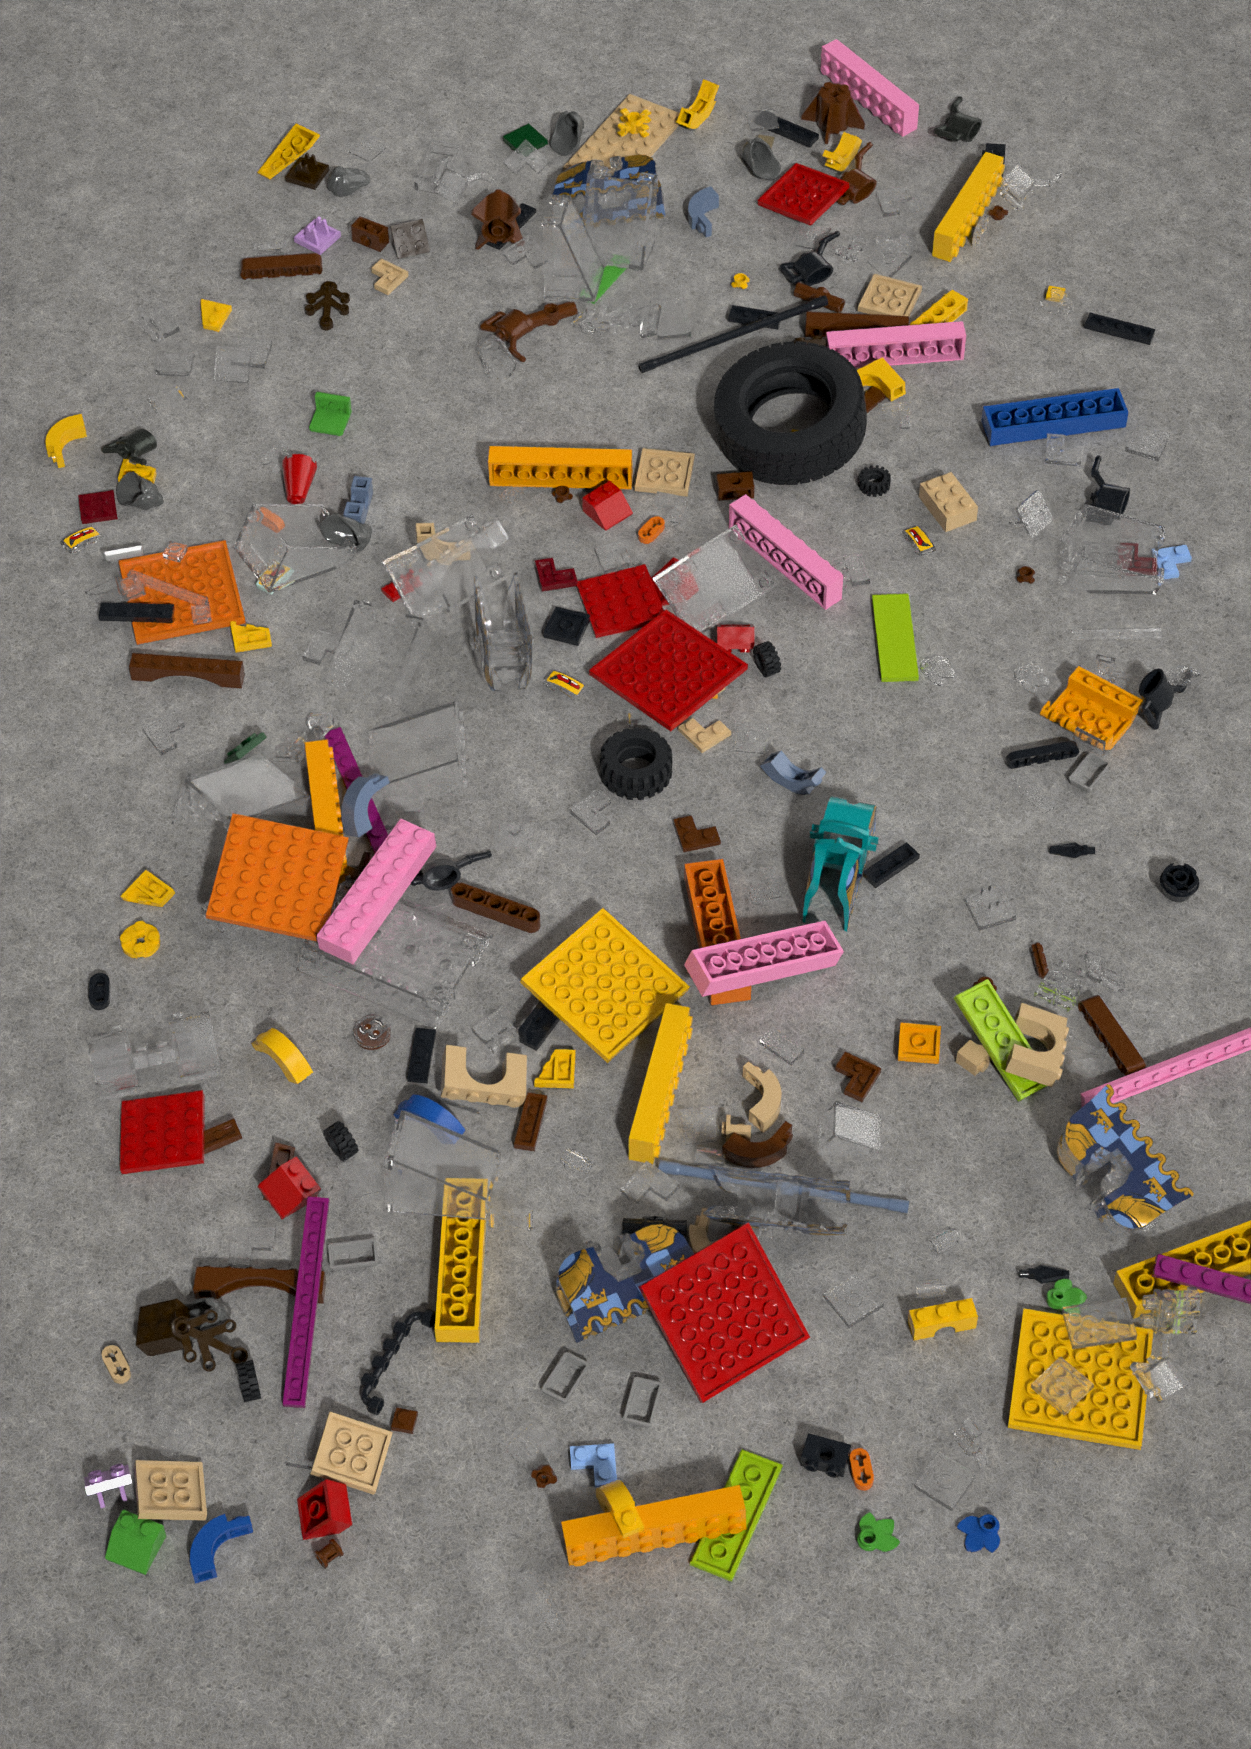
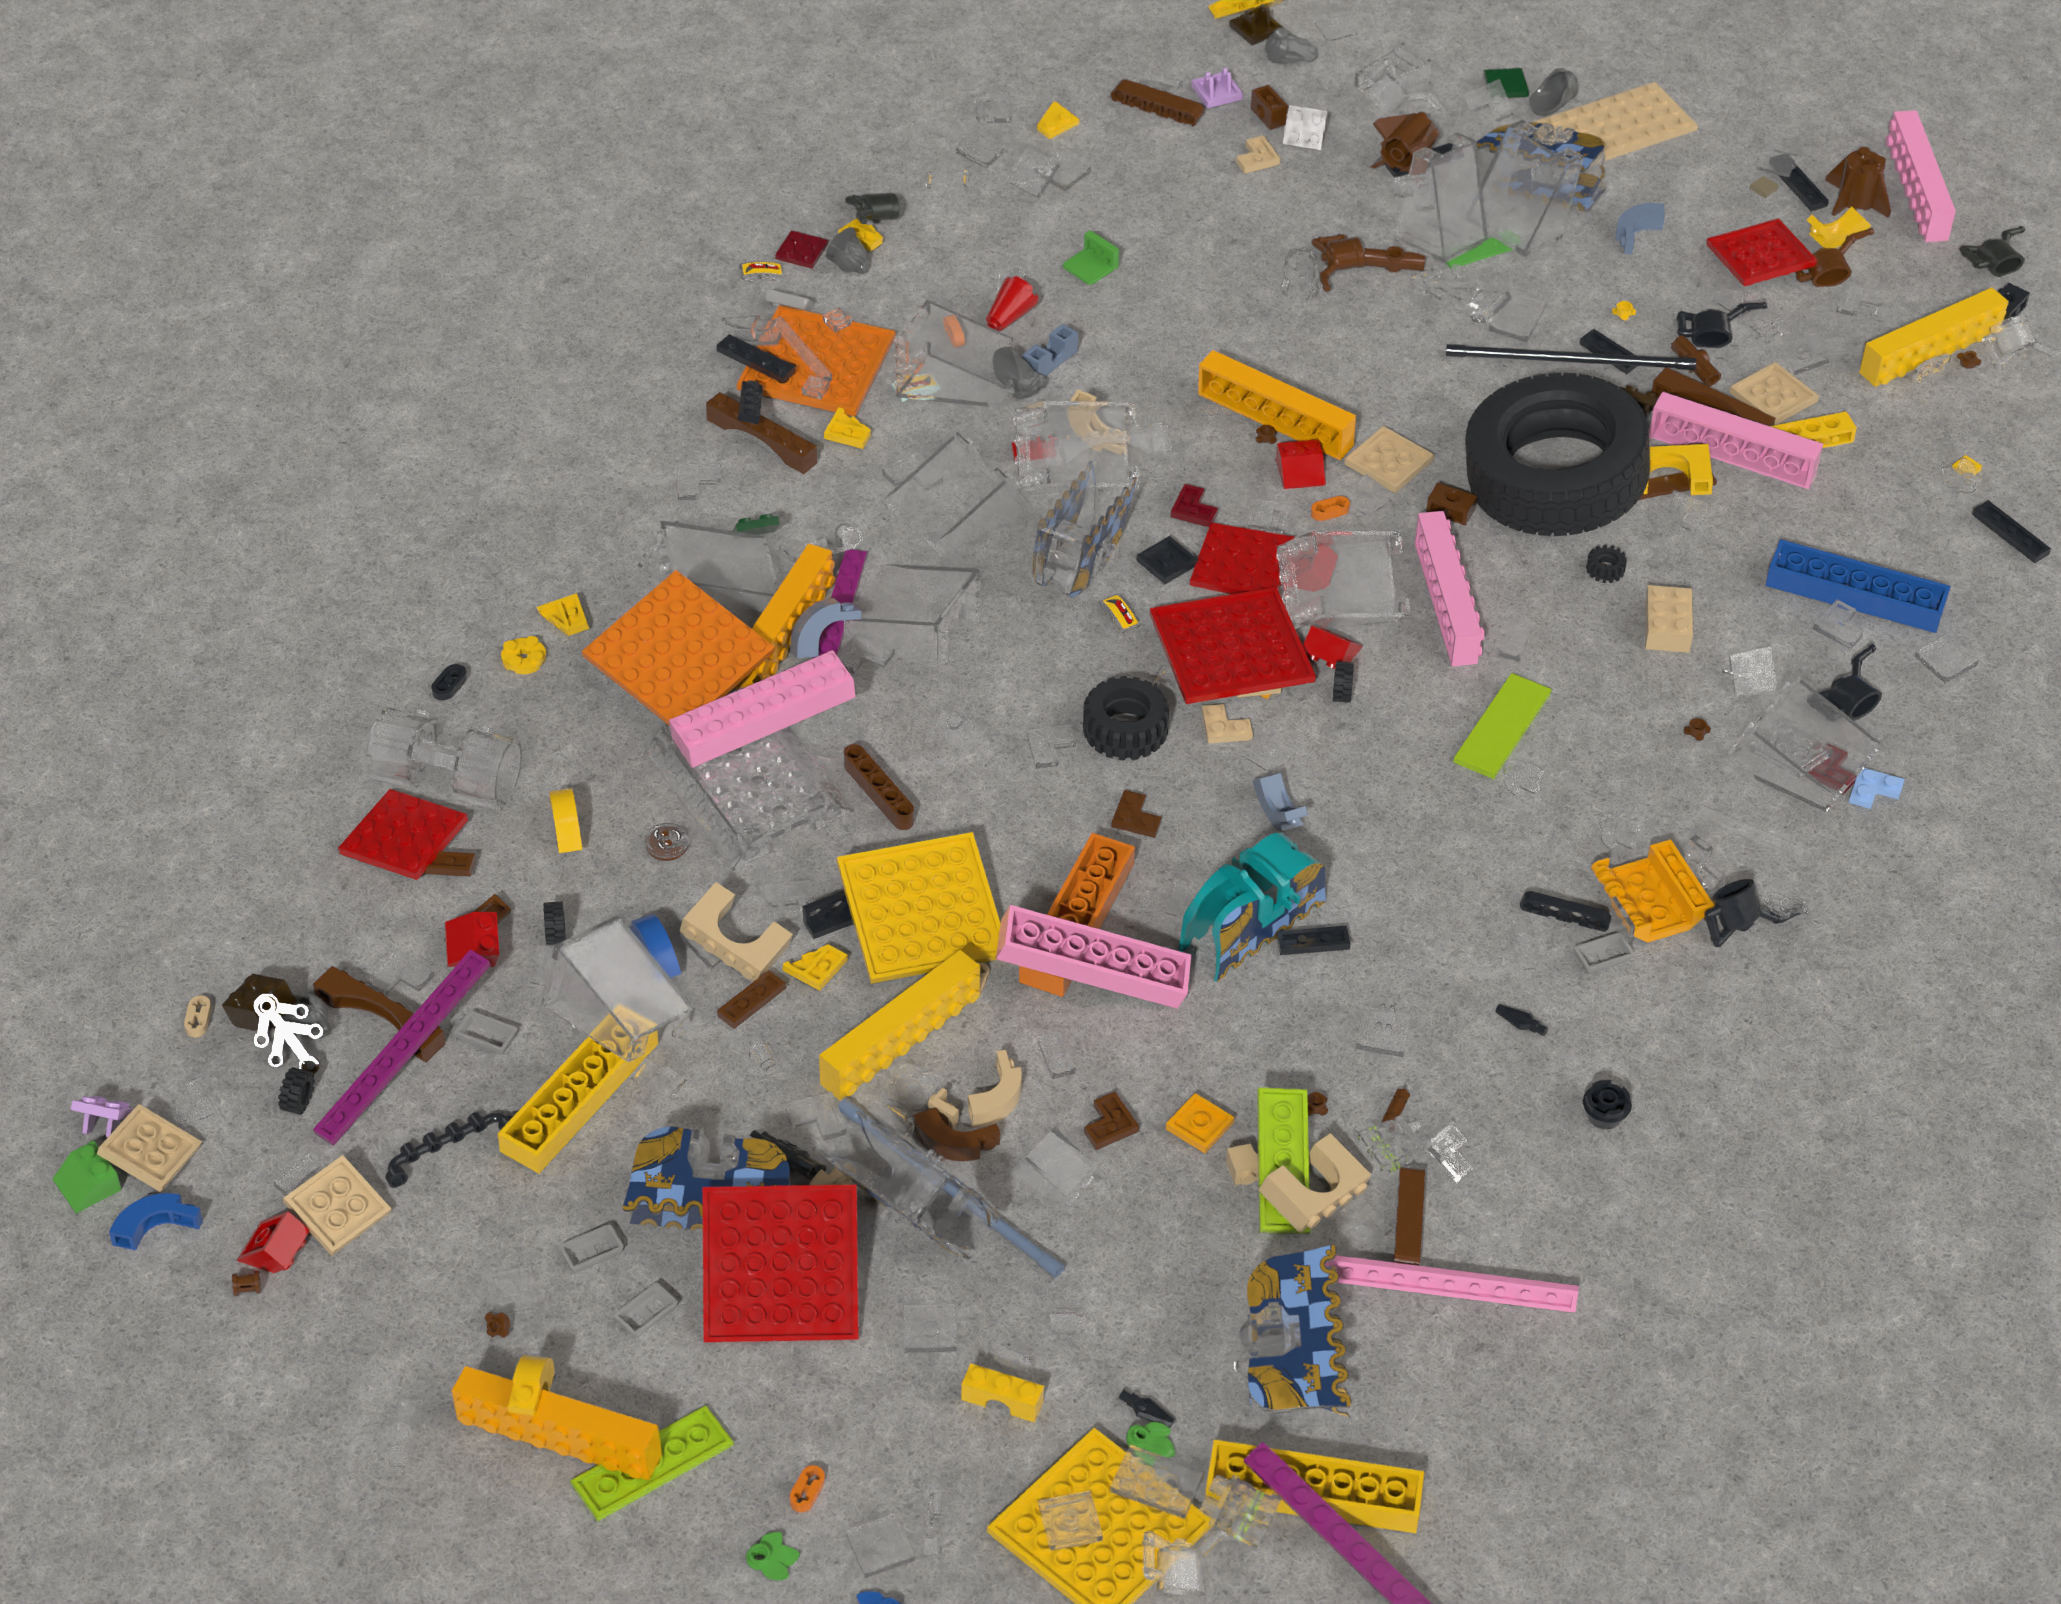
camera: 30 degrees right, 5 degrees down
(62, 433) = (817, 168): yellow arch -> none
(165, 650) = (750, 402): none -> black plate
(328, 289) = (1187, 143): dark brown plant -> none
(404, 1420) = (412, 1205): reddish brown plate -> none
(421, 1055) = (697, 886): black plate -> none
(445, 873) = (852, 728): black piece -> none
(599, 1457) = (563, 1339): light blue plate -> none
(634, 122) = (1631, 109): yellow pin -> none
(701, 108) = (1718, 126): yellow arch -> none
(761, 159) = (1742, 200): dark grey hair -> none
(819, 1446) = (775, 1443): black brick -> none
(919, 540) = (1607, 643): slope -> none

